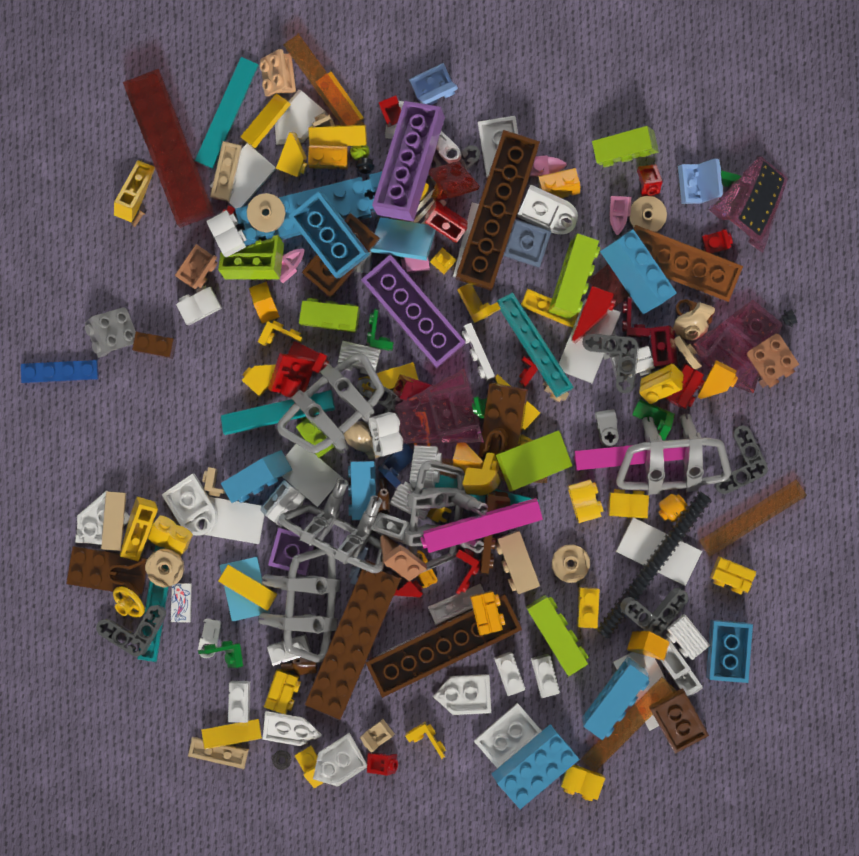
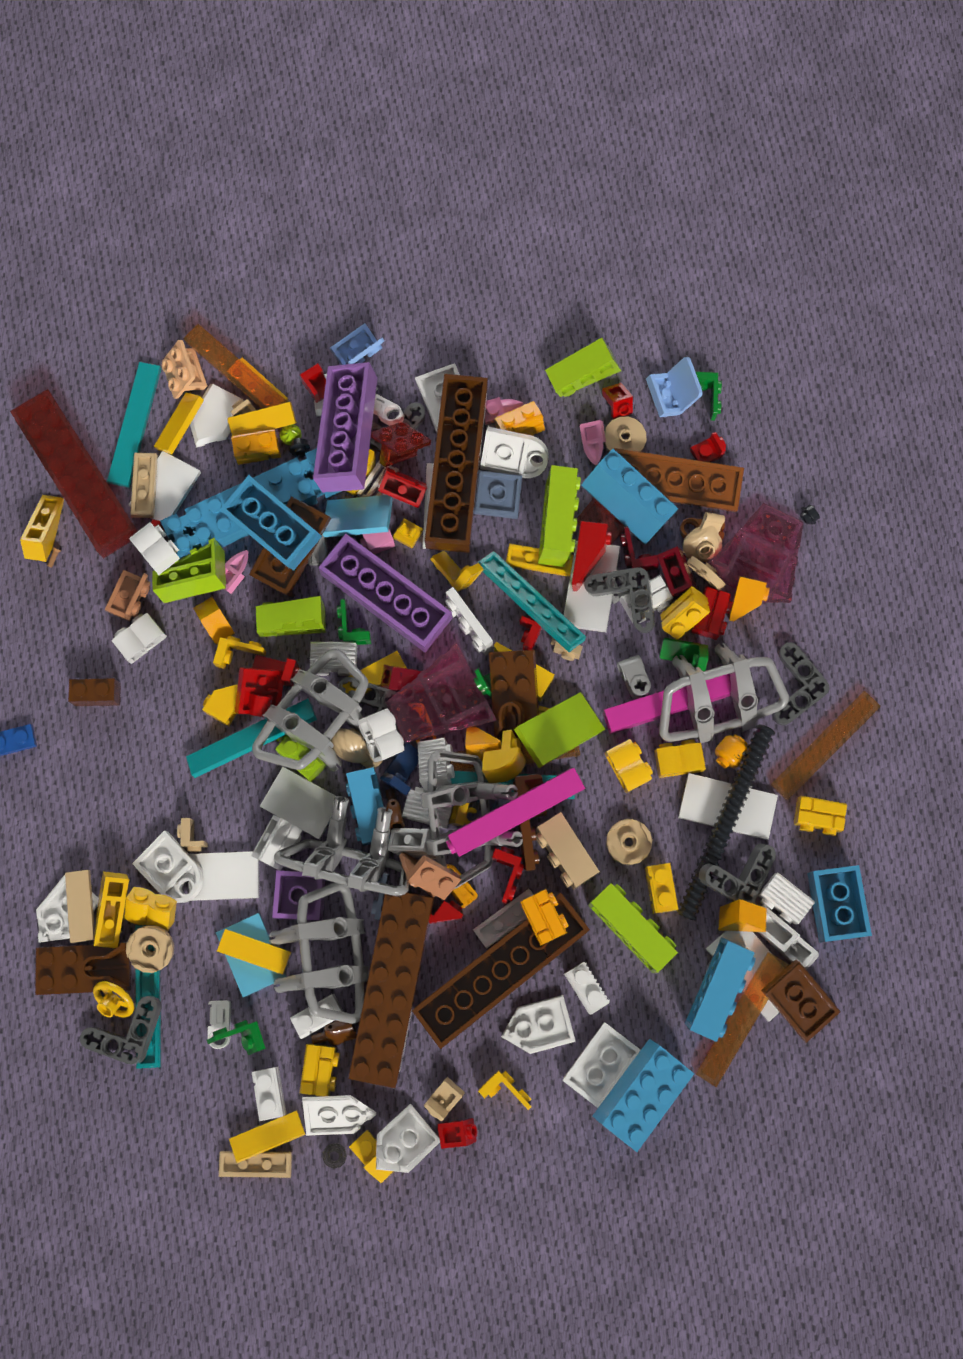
camera: 15 degrees left, 10 degrees down
(110, 331) = (40, 687): light grey bracket -> none
(181, 602) = (178, 988): tile -> none
(254, 477) = (239, 817): dark azure wedge -> none
(273, 219) = (201, 525): tan plate -> none
(292, 156) = (215, 453): yellow slope -> none
(545, 675) = (629, 981): white brick -> none
(582, 781) = (704, 1102): yellow brick -> none
(753, 201) = (738, 398): wedge -> none
(772, 360) = (804, 563): nougat bracket -> none

